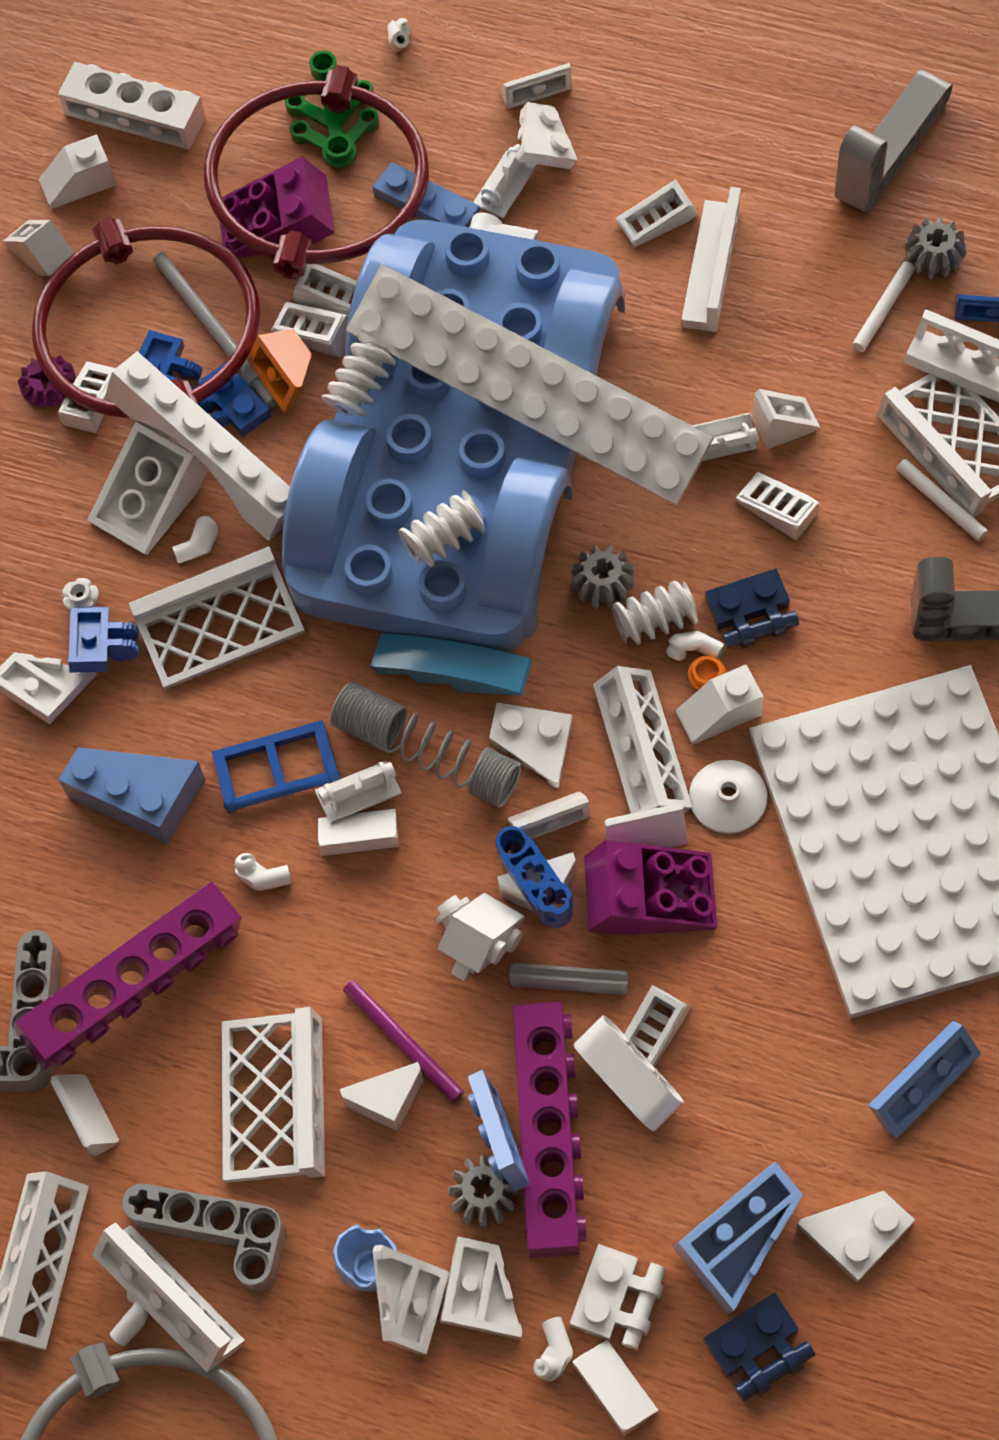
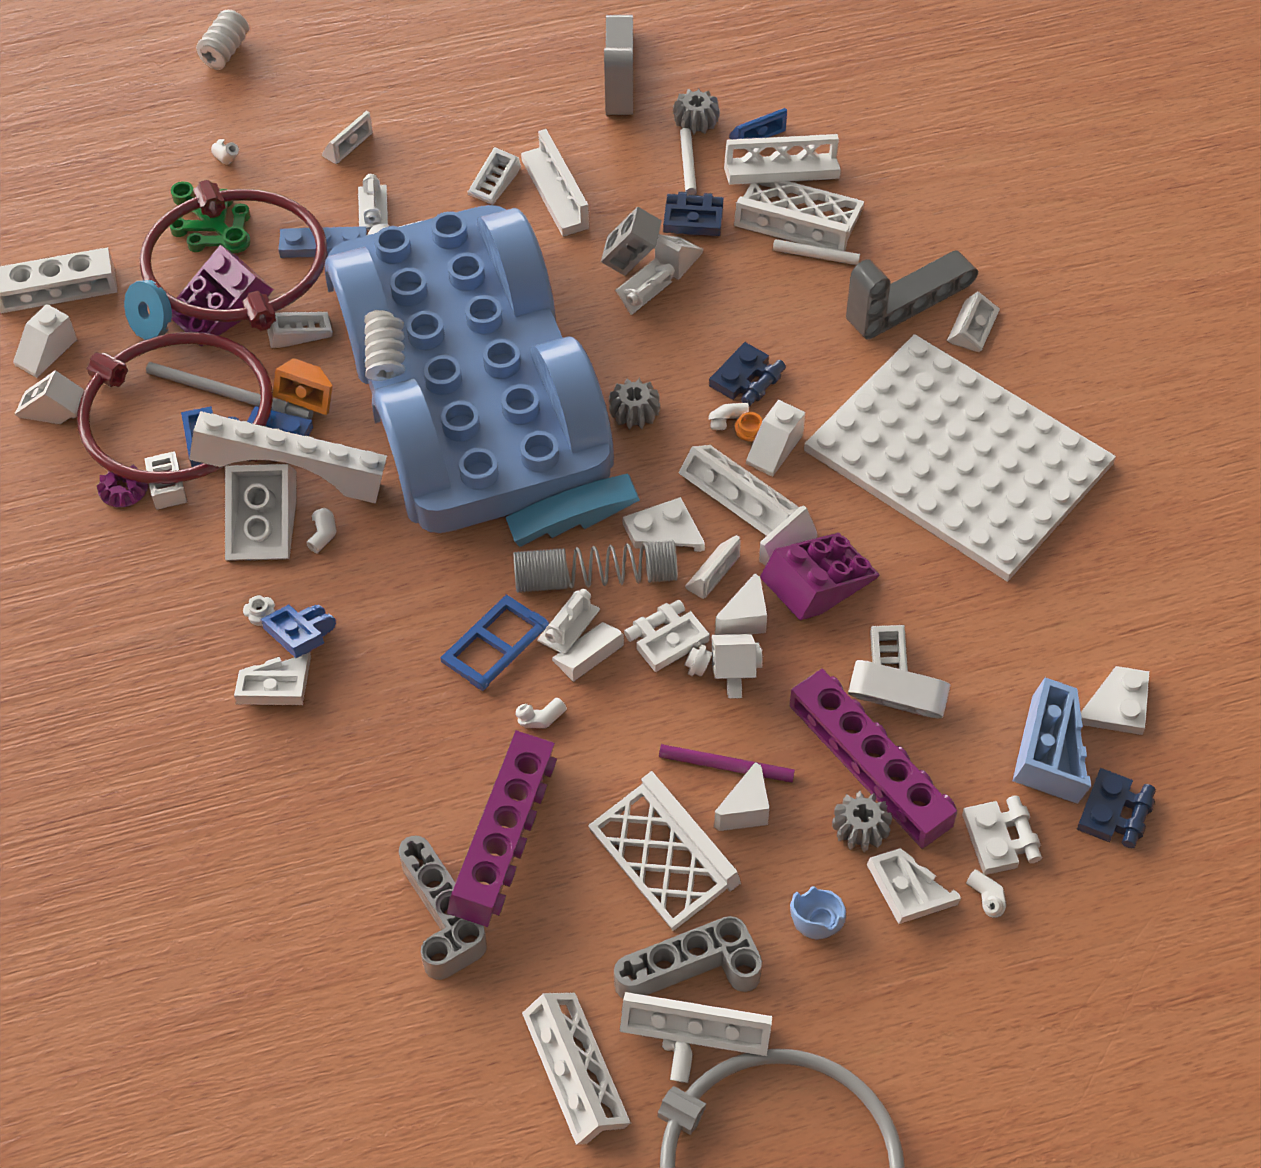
camera: 40 degrees left, 10 degrees down
(85, 1113) = (533, 947): white slope -> none
(134, 788) = (401, 709): medium blue wedge -> none
(191, 192) = (136, 300): none -> dark azure tile
(206, 588) = (351, 559): white fence -> none
(332, 337) = (311, 345): white slope -> none
(407, 1298) = (867, 918): white wing -> none
(442, 529) = (520, 409): white piece -> none
(444, 873) = (671, 641): none -> white plate
(497, 1131) = (846, 771): medium blue plate -> none
(527, 856) = (763, 605): blue beam -> none
(531, 385) = (508, 294): white plate -> none
(544, 138) = (385, 166): white wing -> none
(568, 978) = (808, 659): light grey axle -> none
(614, 1387) = (1046, 893): white slope -> none
(654, 612) = (687, 406): white piece -> none
(728, 813) = (822, 503): white dish -> none
(733, 379) = (631, 241): none -> light grey brick
(781, 520) = (730, 304): white slope -> none
(833, 385) = (693, 214): none -> dark blue plate
(924, 1079) = (1086, 585): medium blue plate -> none

